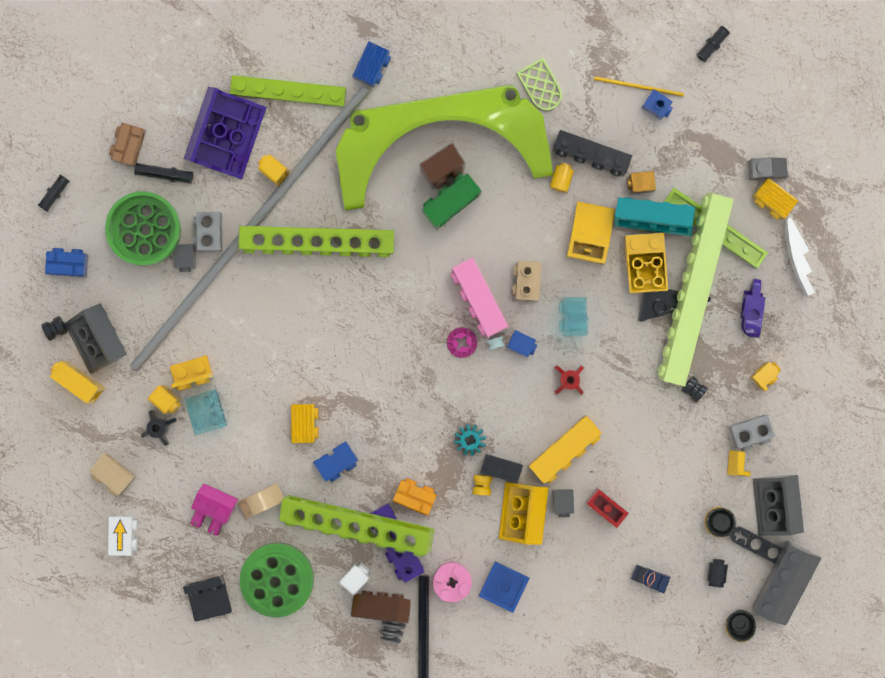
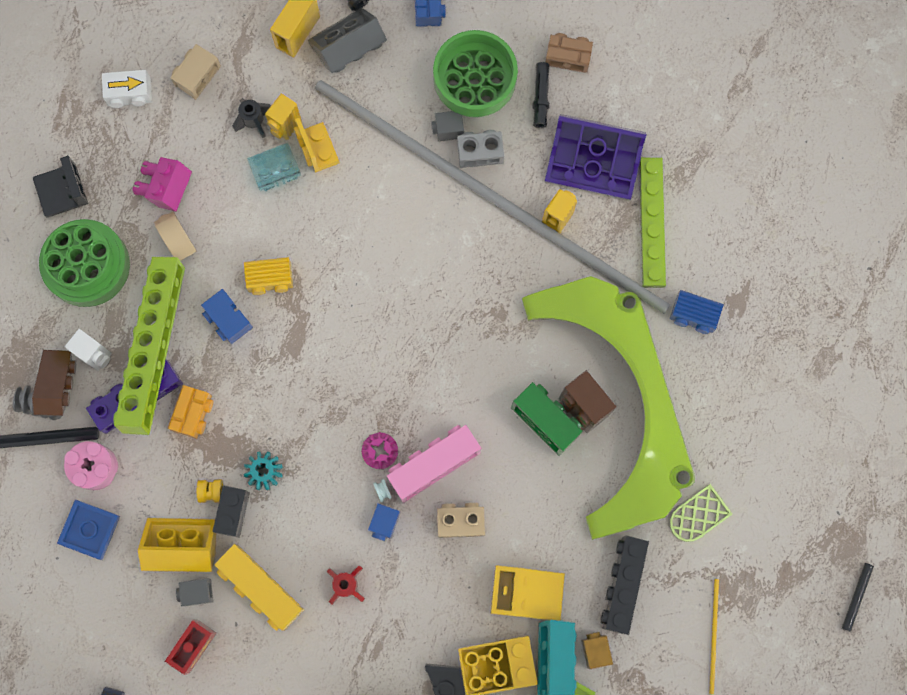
camera: 85 degrees right, 10 degrees down
(247, 234) = (481, 189): lime brick -> none
(562, 178) = (590, 551): yellow brick -> none
(574, 316) = (422, 583): clear light blue brick -> none
(658, 105) = (694, 662): blue brick -> none

